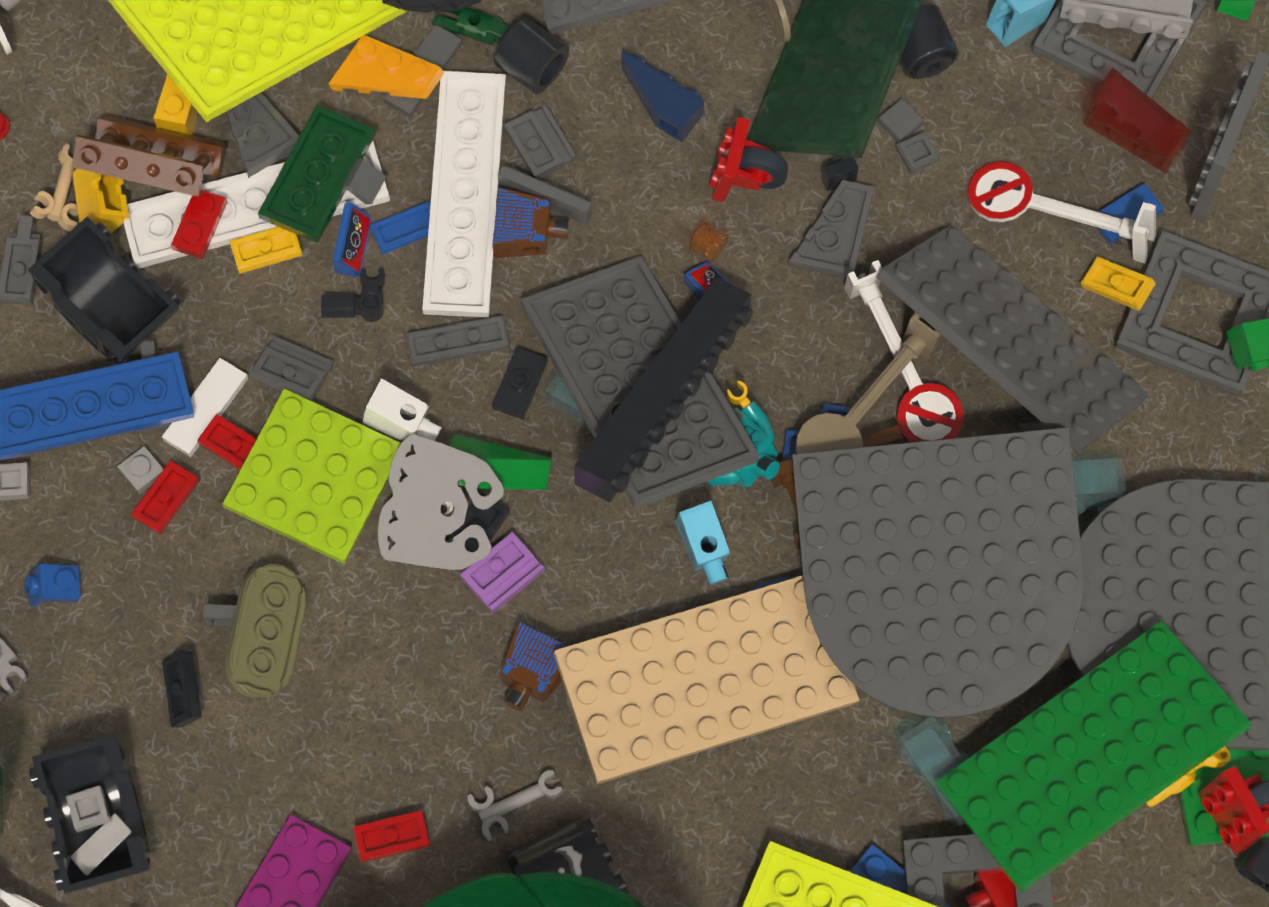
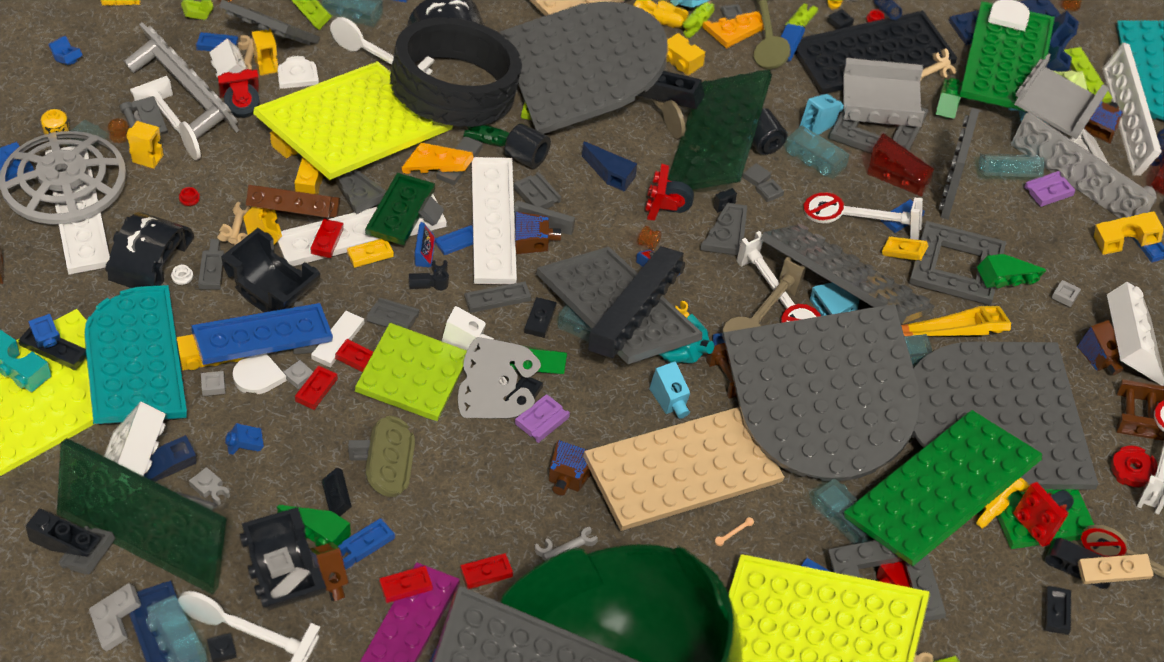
camera: 10 degrees left, 20 degrees down
(79, 470) = (257, 374): none -> white tile
(154, 745) = (322, 525): none -> green slope
(159, 826) = (330, 560): none -> reddish brown torso
(215, 777) = (365, 542): none -> blue hinge
(268, 859) = (405, 584): none -> red plate
(747, 802) = (719, 541): none -> light nougat hinge
(979, 390) = (833, 299): none -> medium azure torso
(1004, 83) = (817, 152): none -> clear light blue brick
(1190, 434) = (970, 322): none -> yellow plate

